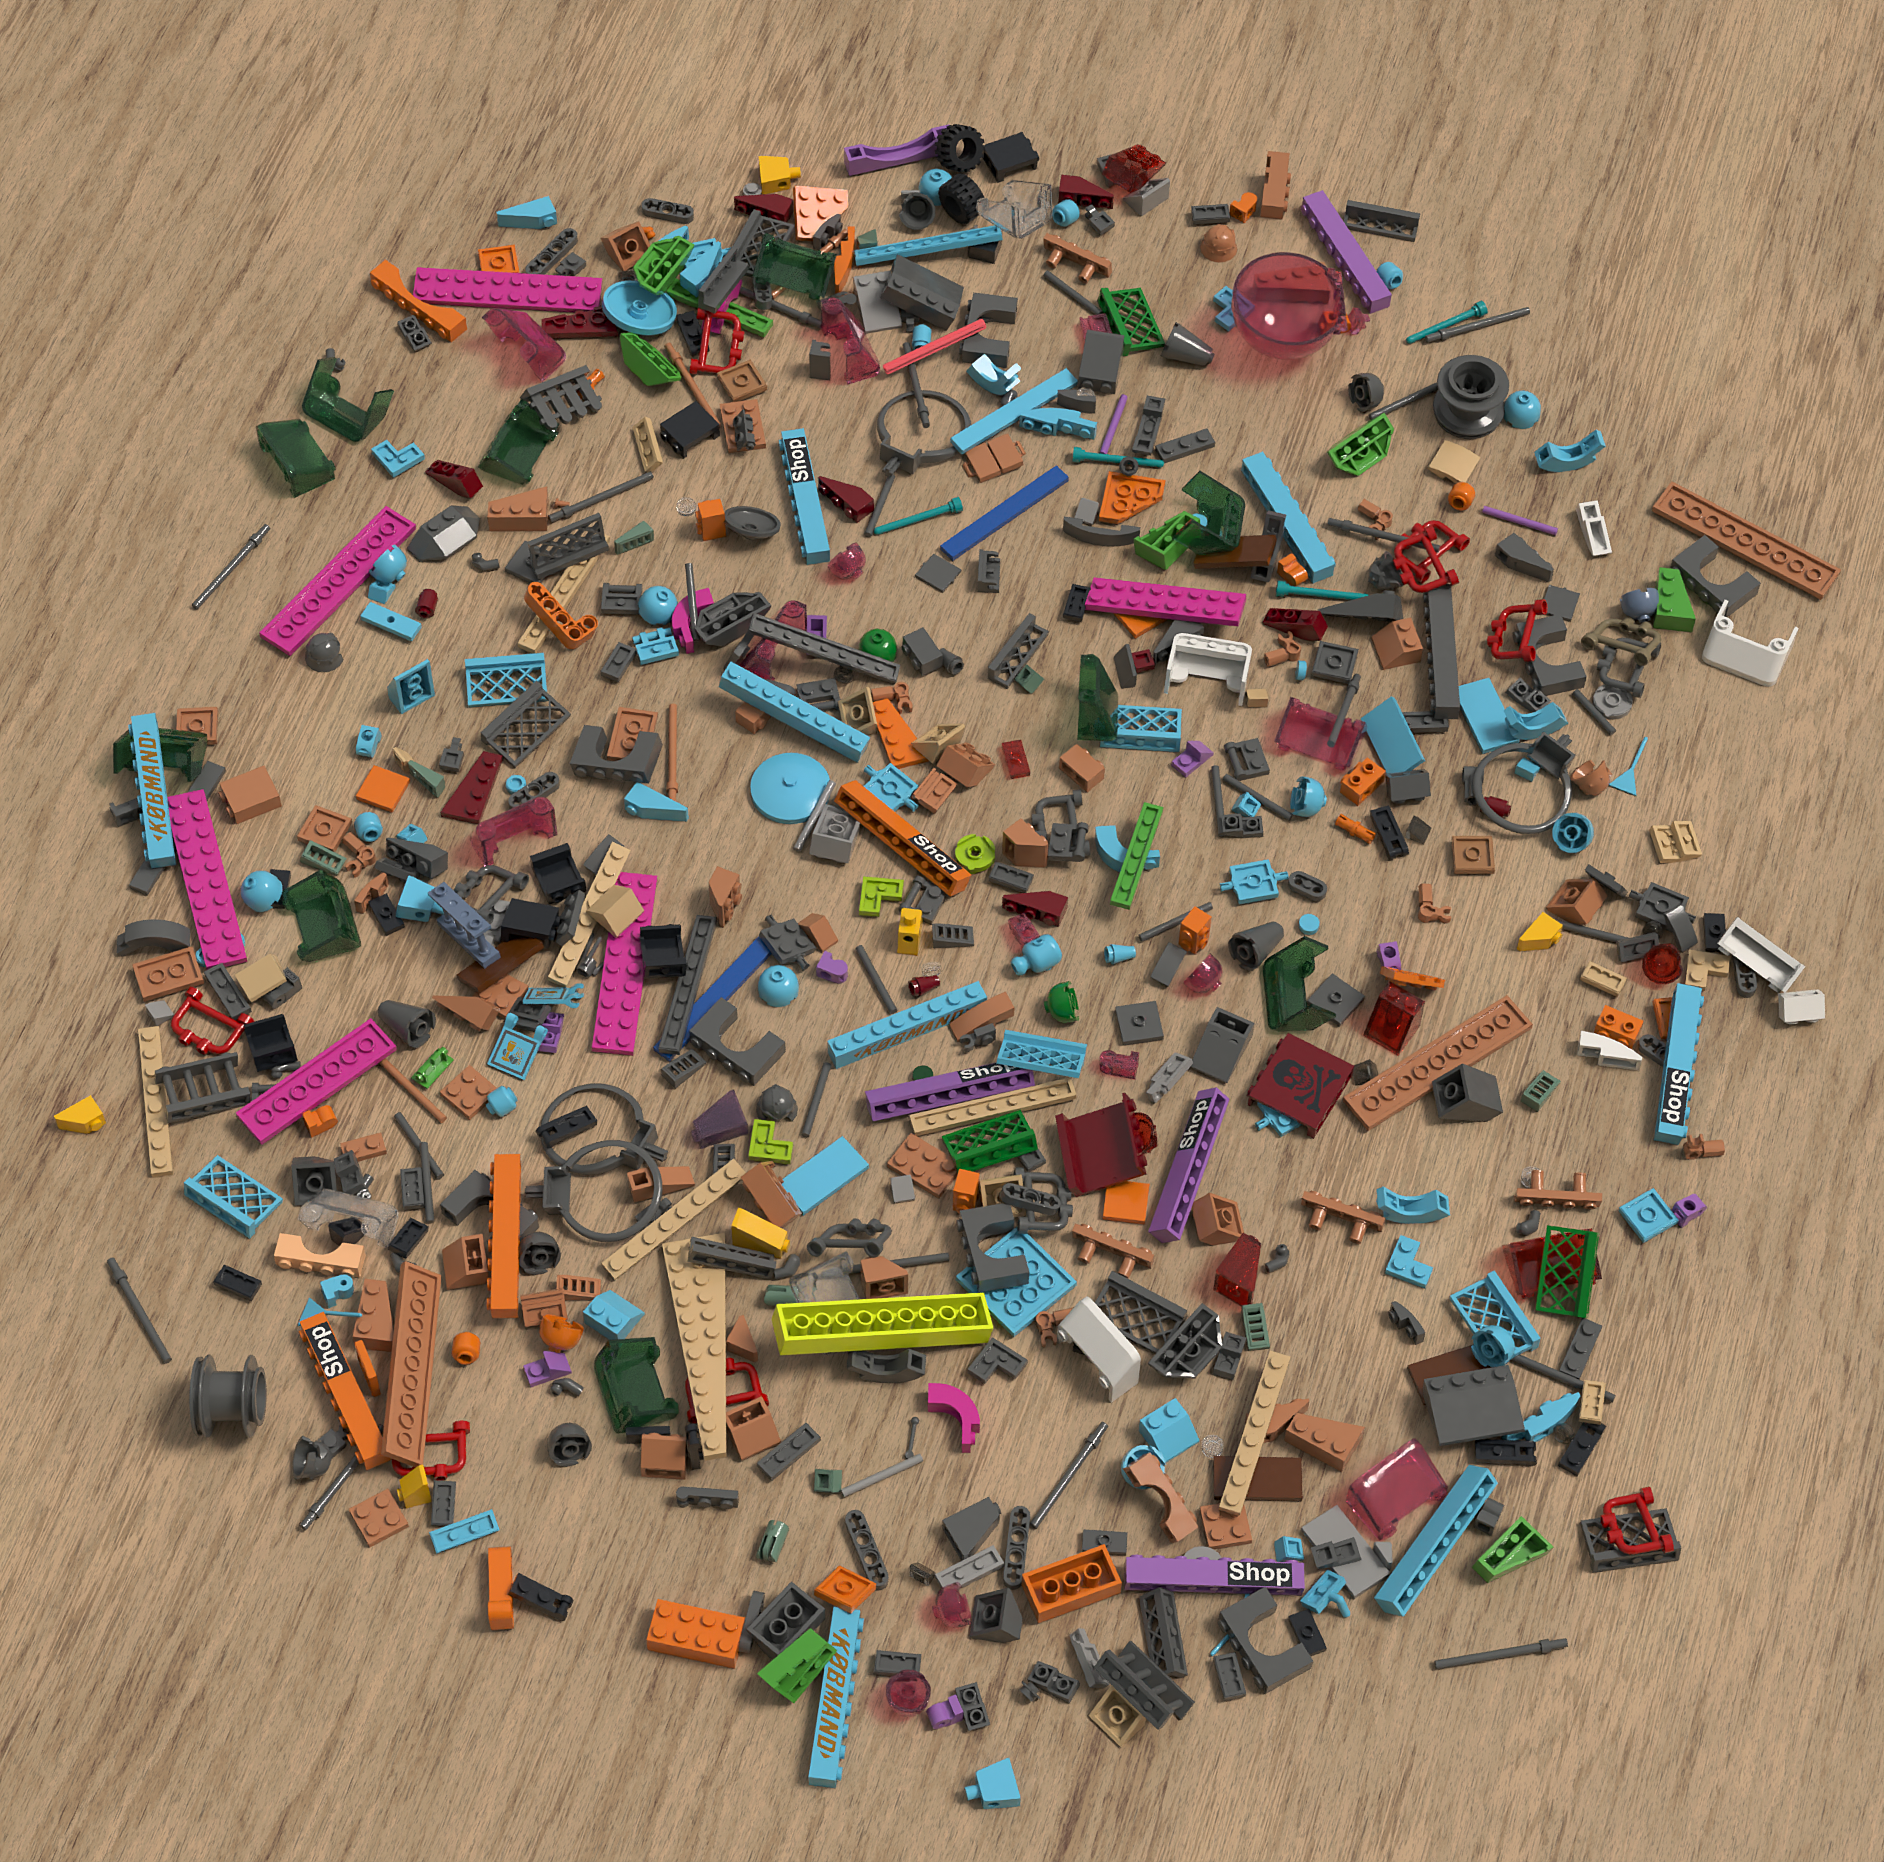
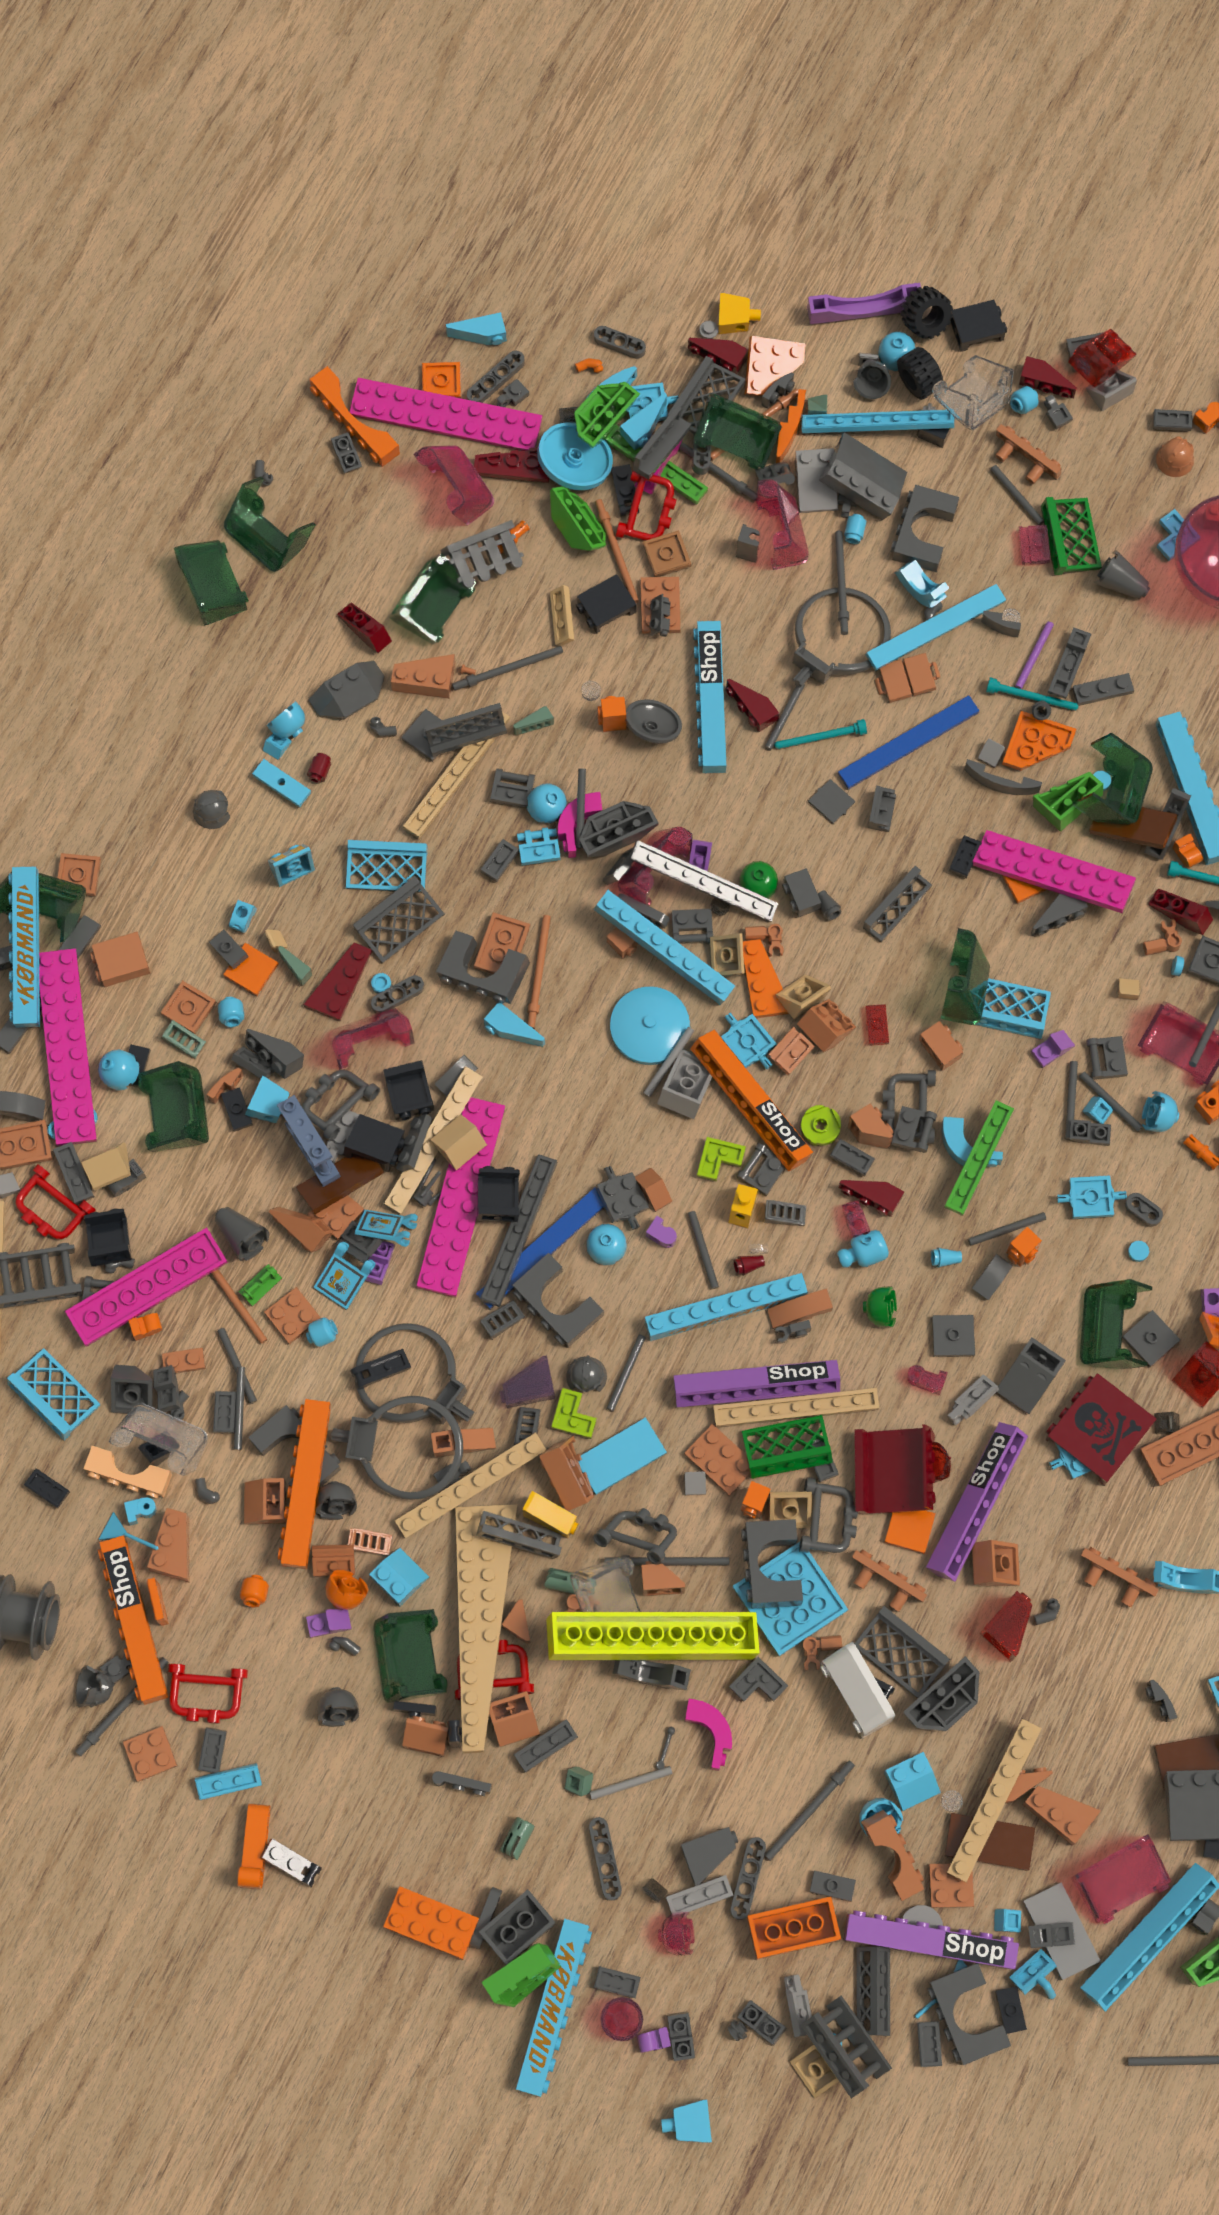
camera: 10 degrees right, 15 degrees up
(254, 541) = (159, 671): dark grey bar -> none
(336, 581) = (235, 729): dark pink plate -> none
(358, 772) = (228, 949): none -> dark grey plate
(365, 855) = (225, 1042): nougat bar -> none
(397, 461) = (308, 599): medium azure plate -> none
(408, 1238) = (214, 1465): black plate -> none
(411, 1365) = (199, 1605): nougat plate -> none
(412, 833) = (272, 1025): medium azure slope -> none
(414, 1488) = (186, 1733): yellow slope -> none
(453, 757) = (322, 945): dark grey plate -> none
(539, 597) = (446, 801): orange beam -> none
(626, 245) = (572, 379): nougat slope -> none
(724, 894) = (567, 1137): nougat slope -> none
(789, 1269) = (574, 1551): dark grey arm -> none
(845, 1589) = (578, 1900): orange tile -> none
(848, 563) = (743, 782): clear pink cylinder -> none
(922, 1072) = (733, 1361): dark green tile -> none
(934, 346) = (866, 543): coral axle -> none
(996, 1617) = (717, 1949): dark grey slope -> none
(1029, 679) = (904, 936): sand green slope -> none
(1049, 1049) = (855, 1353): medium azure fence -> none
(1049, 1203) = (825, 1516): dark grey beam -> none
(1057, 419) = (971, 642): medium azure slope -> none
(1101, 361) = (1032, 584): dark grey slope -> none
(1125, 667) = (1002, 937): dark grey slope -> none
(1143, 661) = (1020, 932): dark red plate -> none
(1205, 976) = (1025, 1296): clear pink cylinder -> none
(1211, 659) = (1089, 942): white windscreen -> none
(1229, 1355) = (982, 1712): dark grey slope -> none
(1253, 1313) = (1021, 1682): sand green slope -> none
(1255, 944) = (1082, 1269): dark grey cone -> none
(1384, 1553) = (1098, 1941): light grey slope -> none
(1405, 1267) = (1169, 1638): medium azure plate -> none

